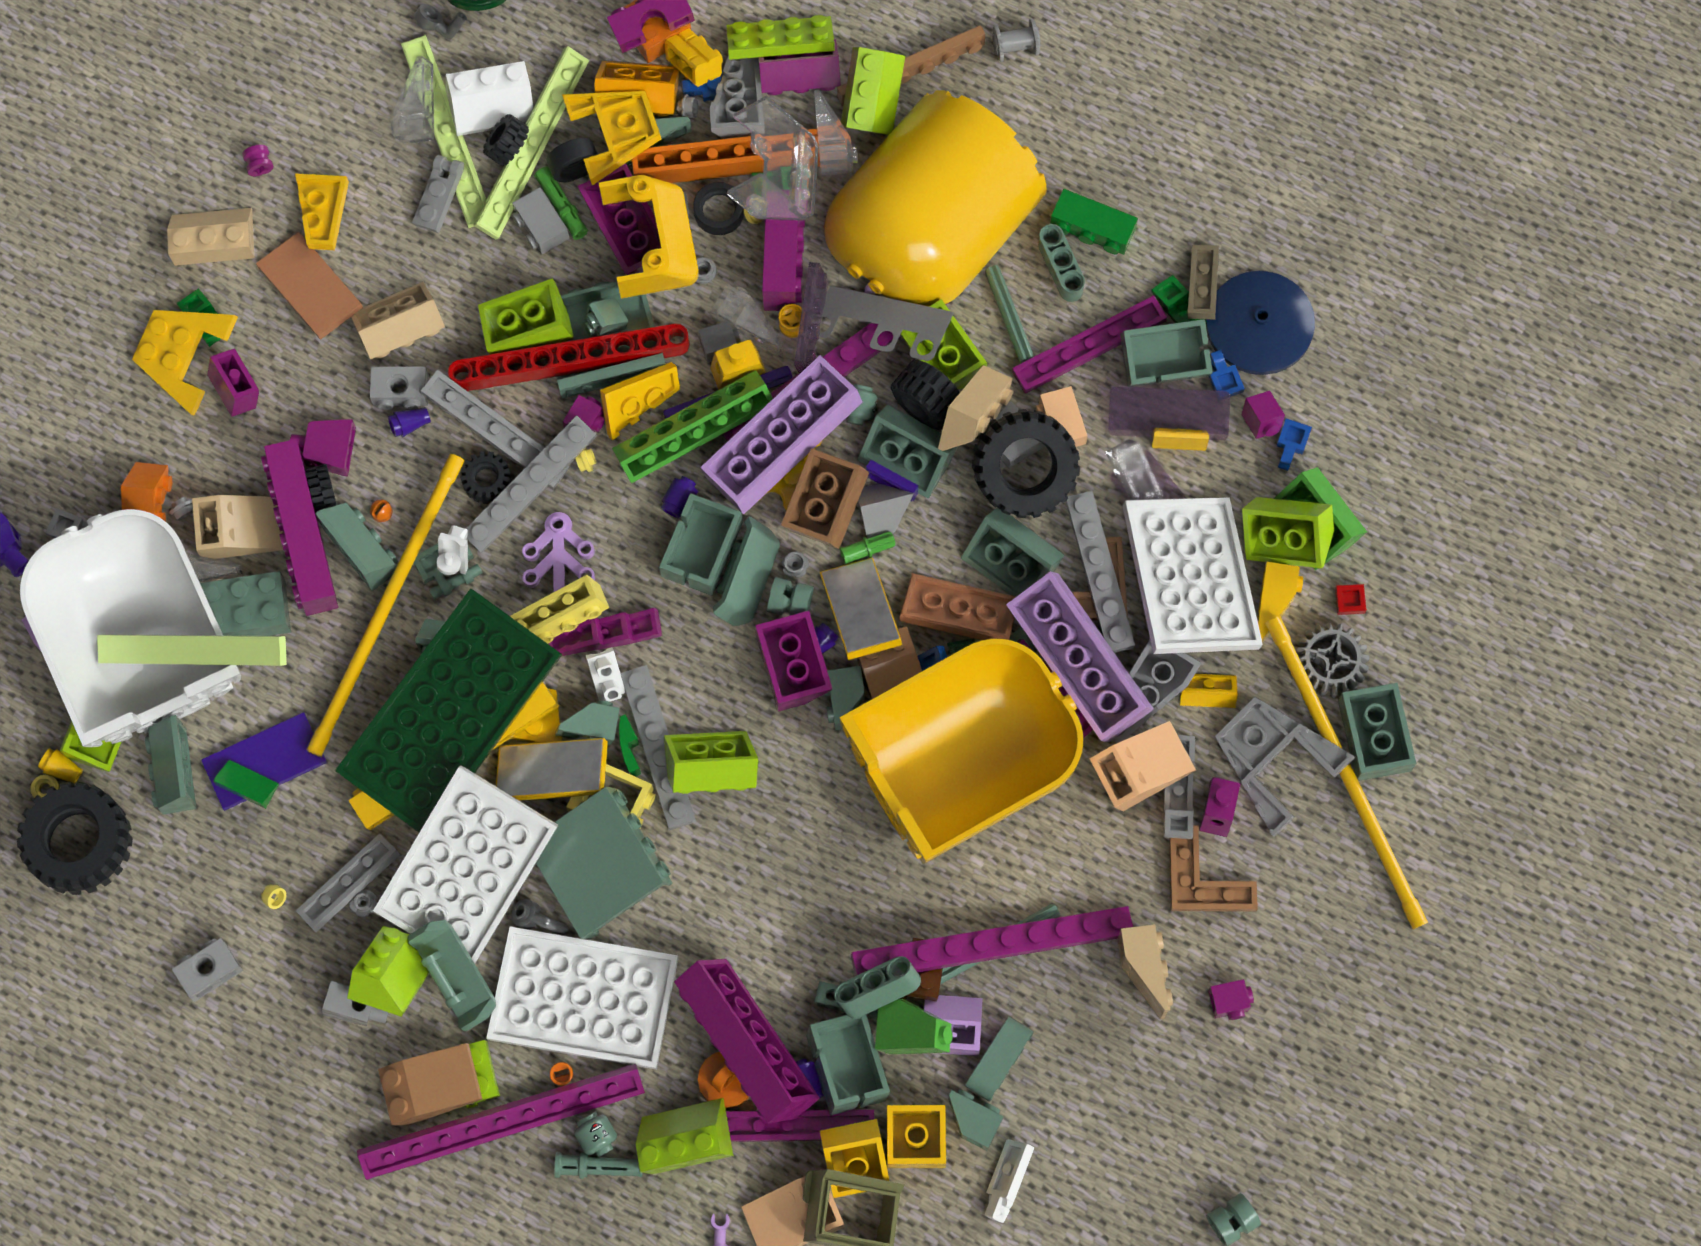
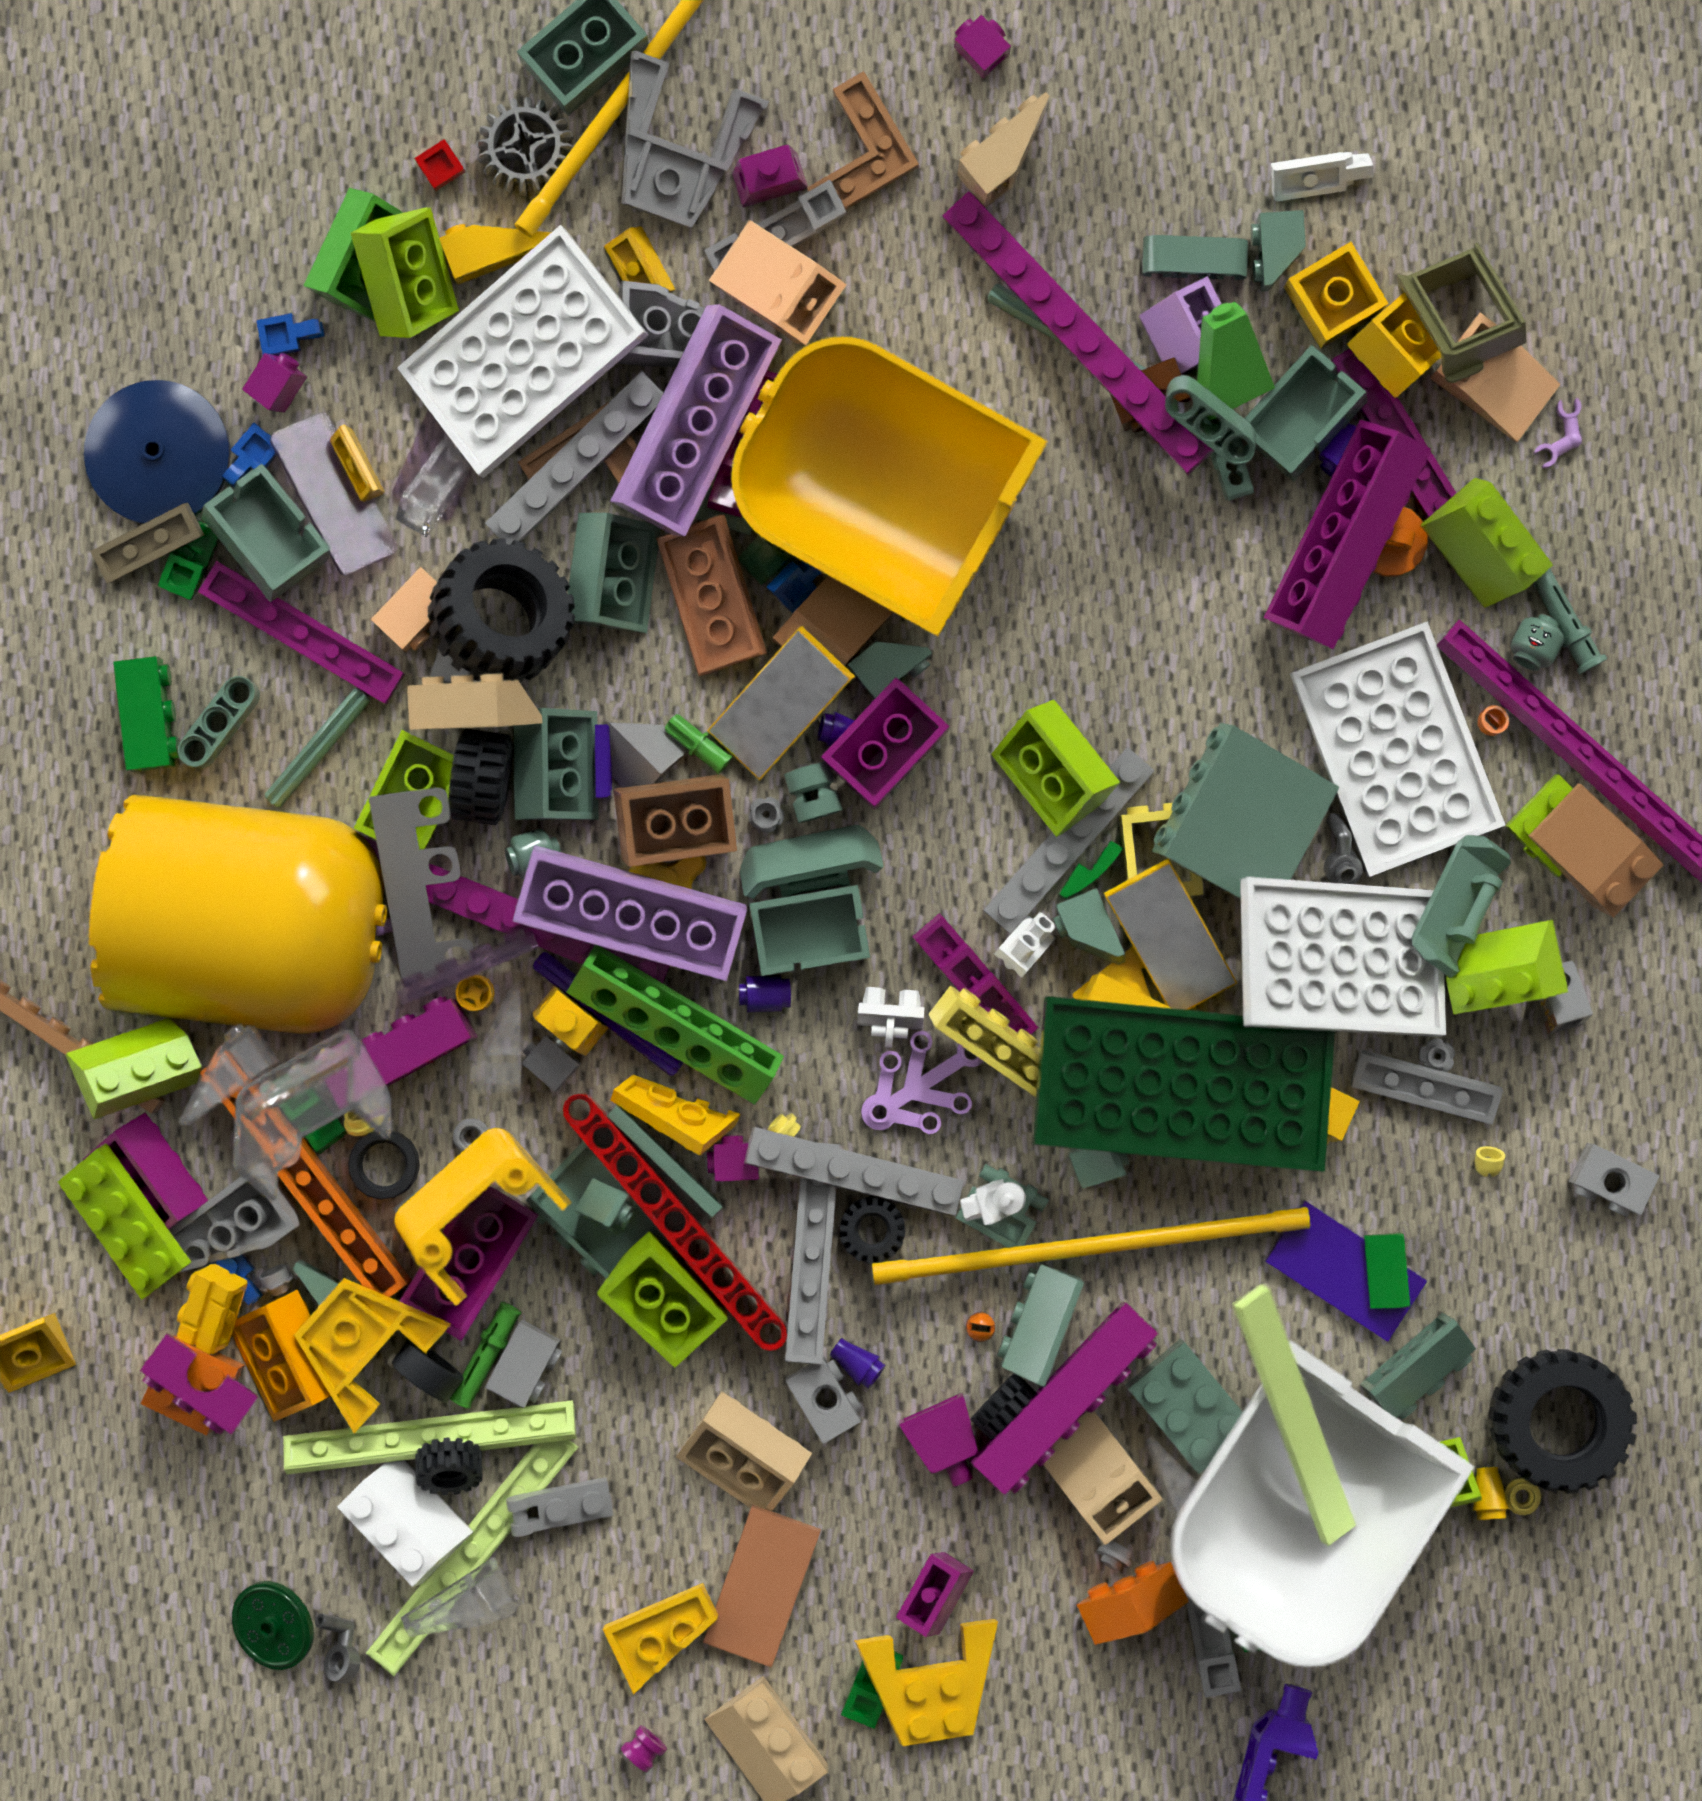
camera: 125 degrees left, 15 degrees up
(624, 558) = (890, 1020): none -> white hips

